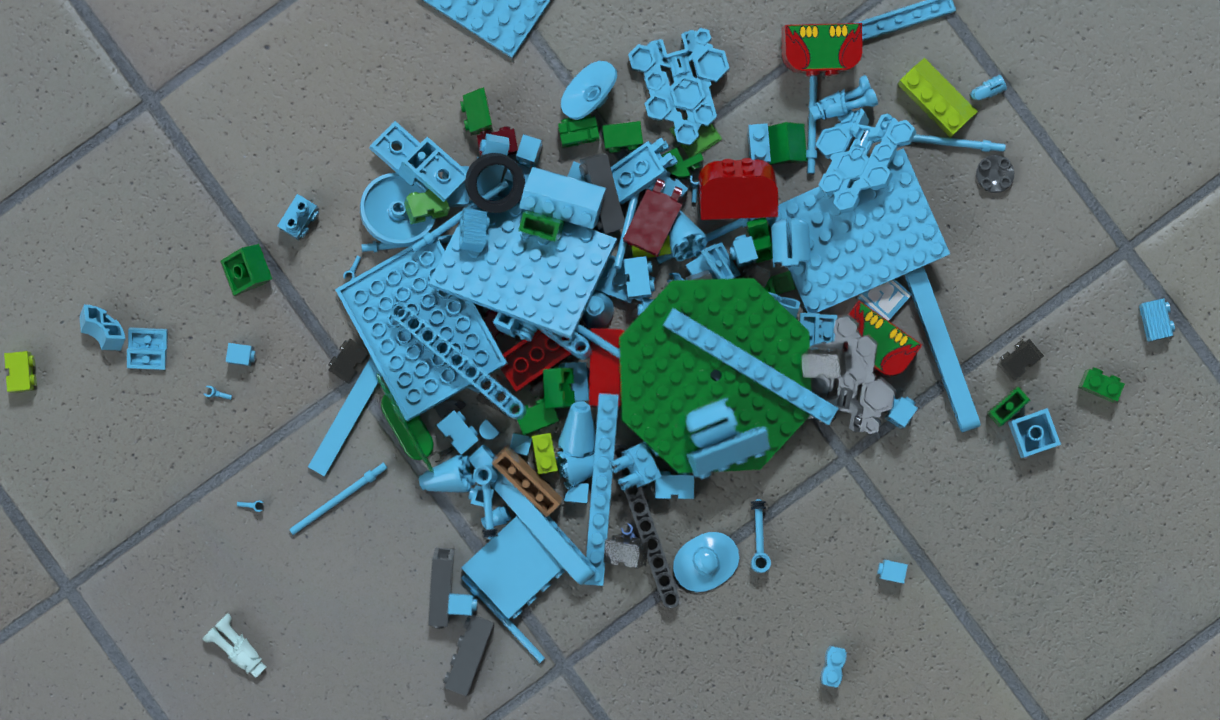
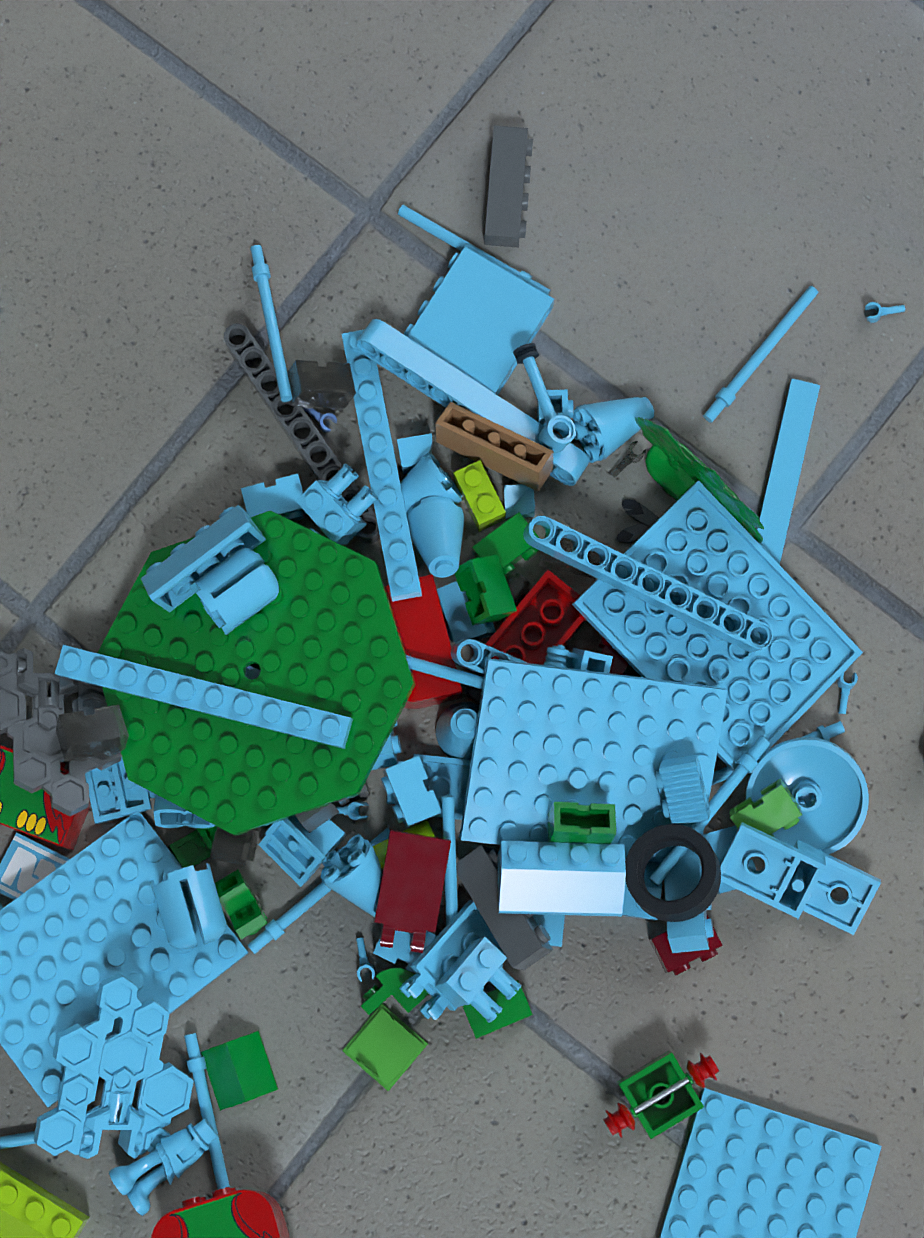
camera: 165 degrees right, 5 degrees down
(242, 653) = (829, 105): light aqua piece -> none
(347, 360) = (812, 544): clear smoke brick -> none
(440, 587) = (575, 268): dark grey slope -> none
(461, 434) = (611, 490): medium azure brick -> none
(462, 604) = (537, 248): medium azure brick -> none
(477, 112) = (731, 983): green slope -> none
(488, 431) = (571, 507): medium azure brick -> none
(500, 516) = (520, 390): medium azure cone -> none
(529, 151) = (634, 941): medium azure brick -> none
(540, 59) = (660, 1094): none -> green brick
(578, 131) = (566, 998): green brick -> none
(588, 89) = (569, 1067): medium azure hat -> none
(633, 157) = (471, 971): none -> medium azure brick
(644, 640) = (262, 275): none -> medium azure bar
(686, 91) = (415, 1109): medium azure piece -> none
(706, 562) = (201, 409): medium azure hat -> none
(738, 190) = (293, 970): red brick -> none
(743, 251) = (262, 878): medium azure brick -> none
(758, 506) = (142, 508): medium azure piece -> none
(759, 142) = (281, 1055): medium azure brick -> none

